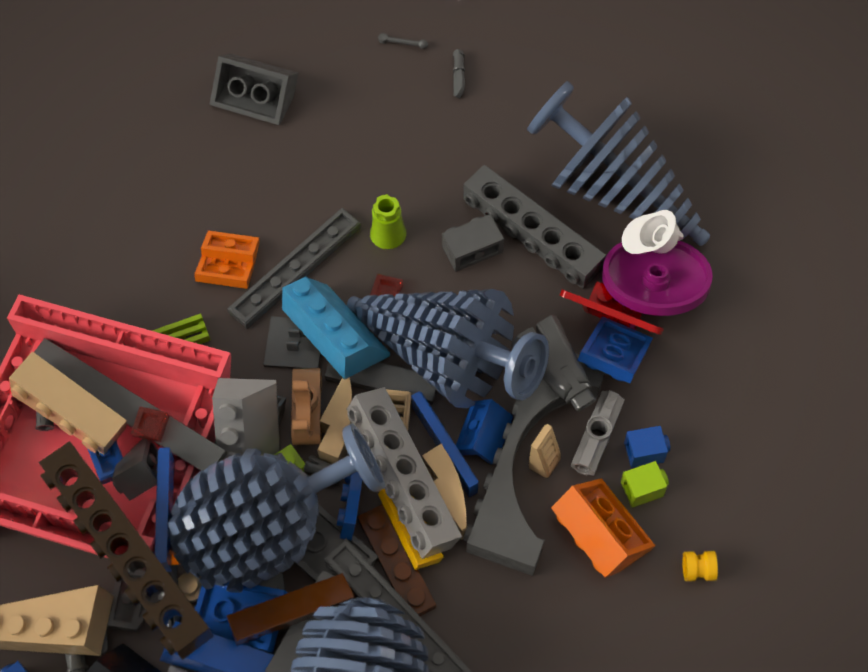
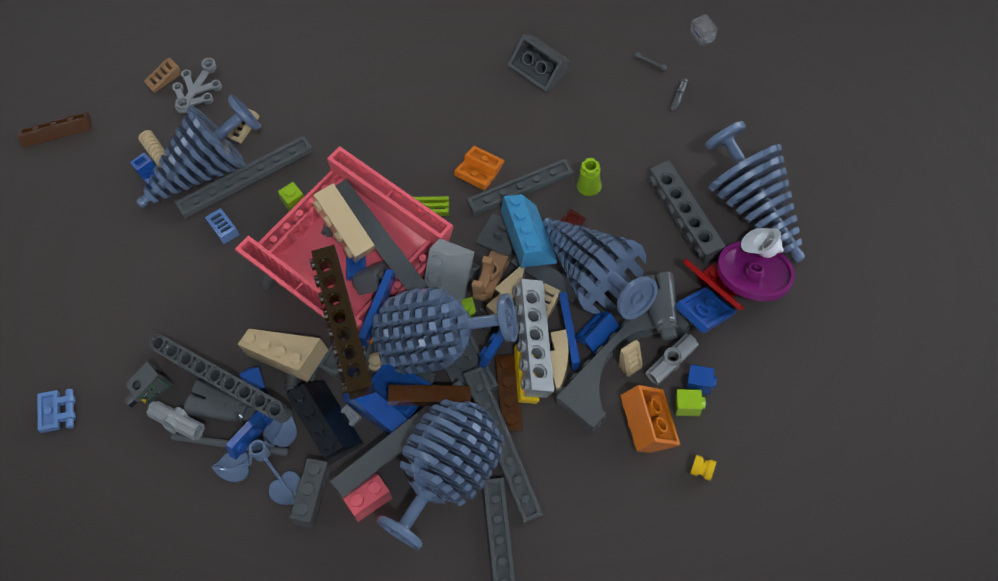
camera: 25 degrees right, 0 degrees up
(150, 424) = (388, 253): clear red tile -> none
(472, 242) = (641, 208): dark grey brick -> none

